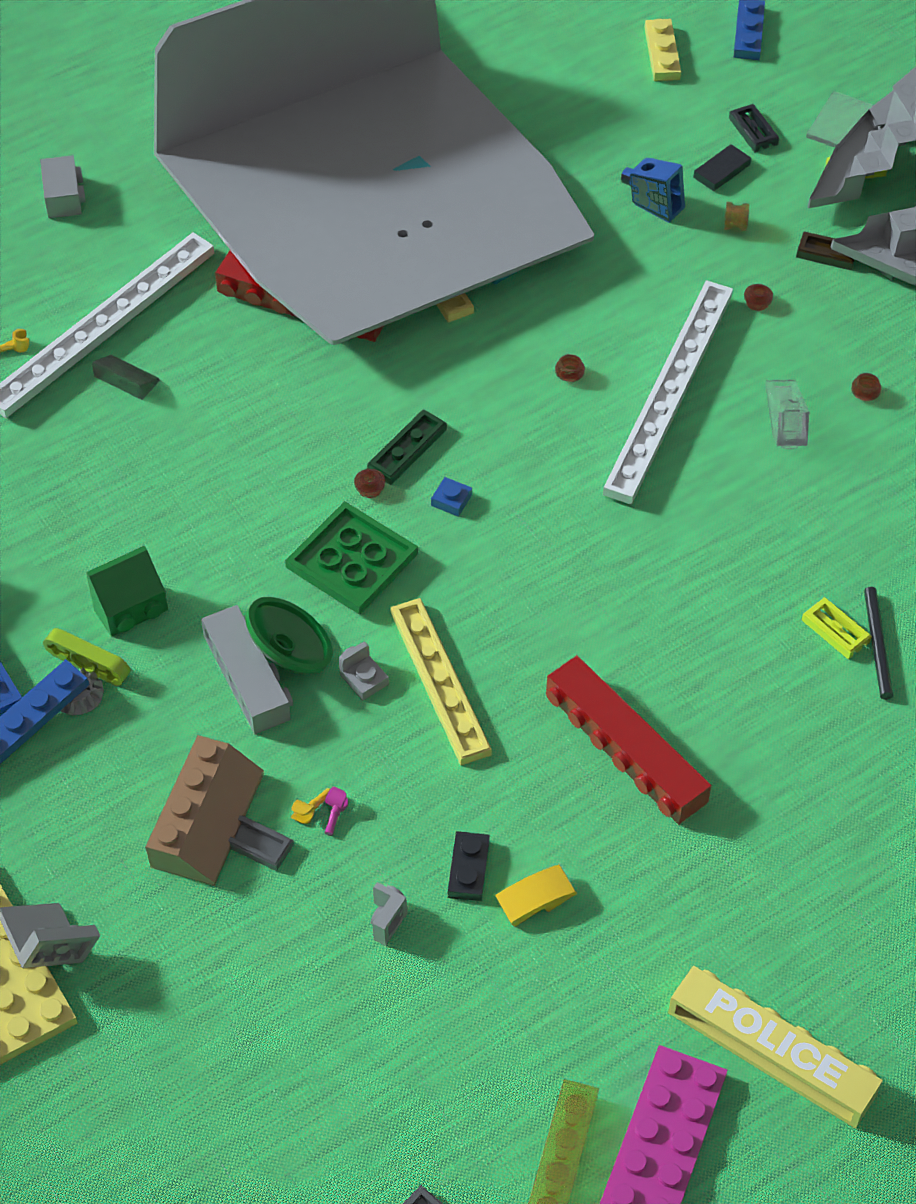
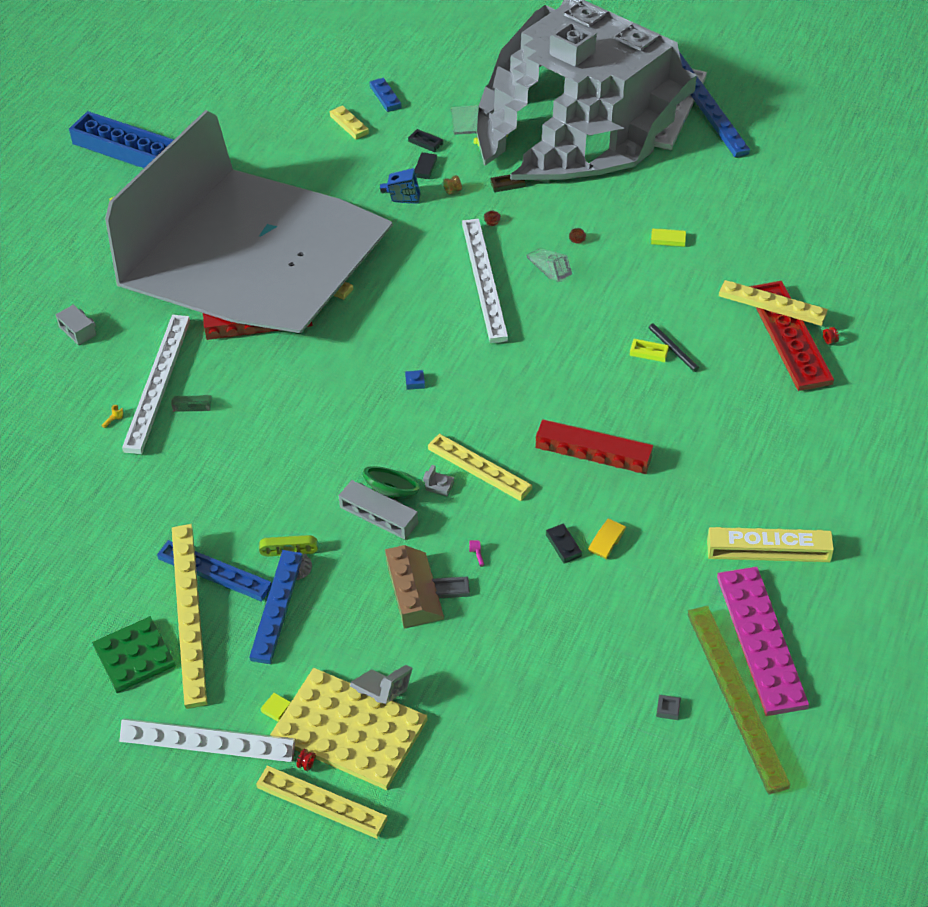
camera: 30 degrees left, 5 degrees down
(127, 591) = (287, 503): green slope -> none
(304, 812) = (461, 561): yellow hand -> none
(351, 557) = (388, 431): green plate -> none
(372, 488) = (368, 393): clear red plate -> none
(390, 912) = (542, 578): light grey bracket -> none
(408, 446) = (372, 367): dark green tile -> none
(570, 368) = (426, 292): clear red plate -> none

